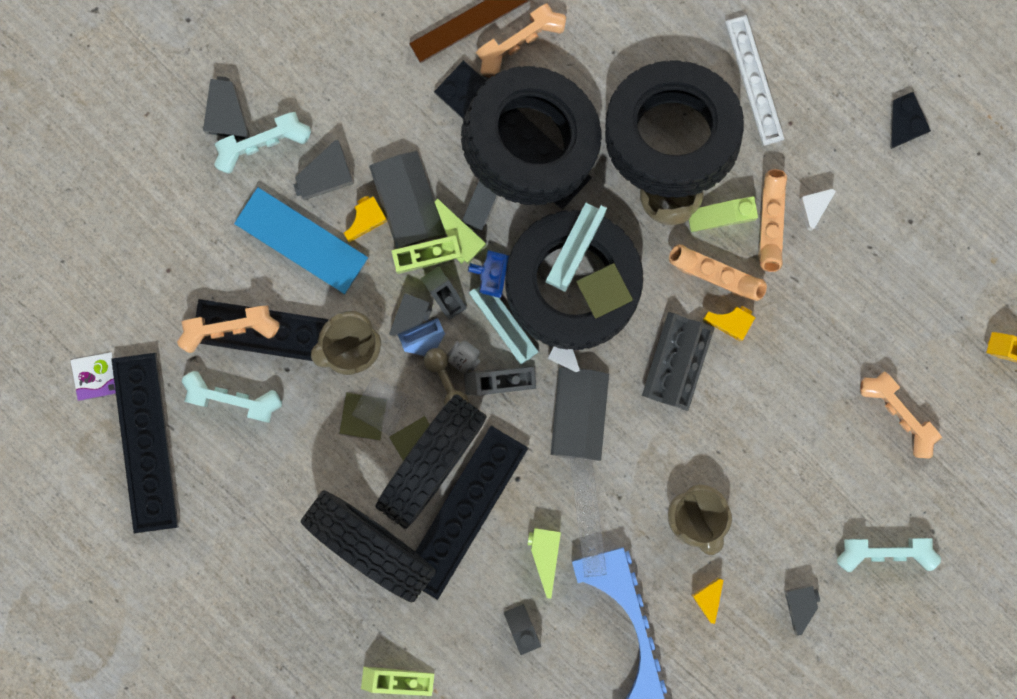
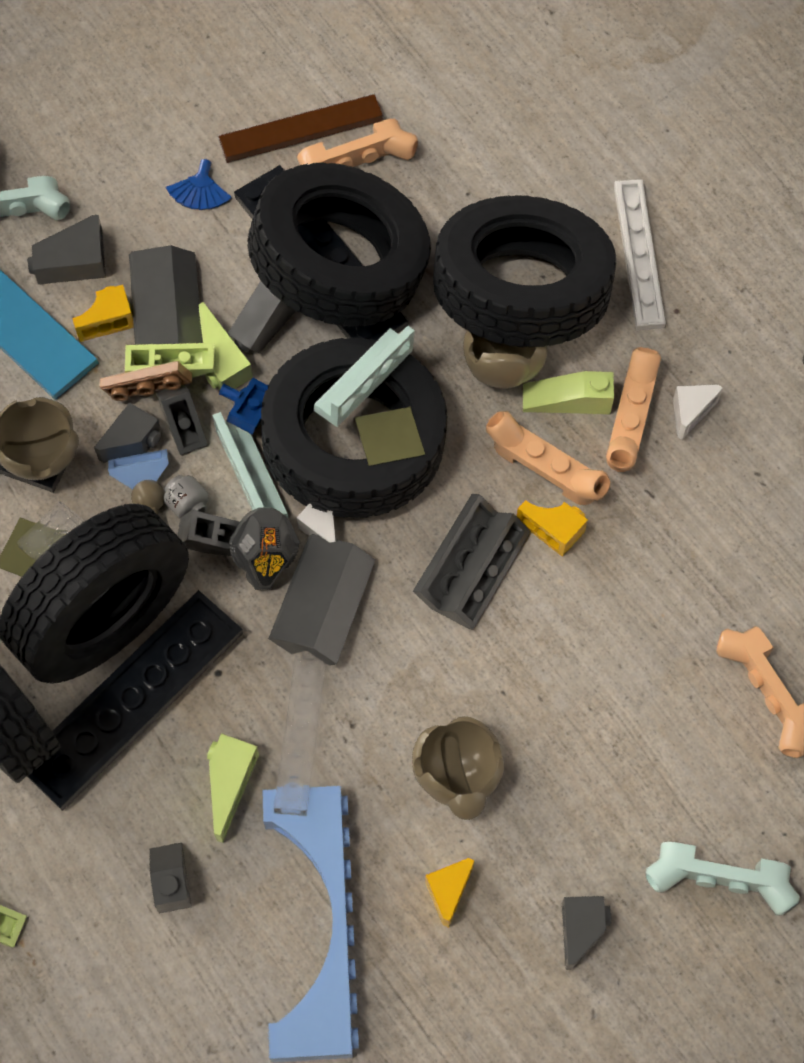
camera: 10 degrees right, 20 degrees down
(405, 94) = (199, 190): none -> blue hand
(413, 274) = (146, 381): none -> medium nougat tile
(531, 386) = (264, 546): none -> dark grey helmet

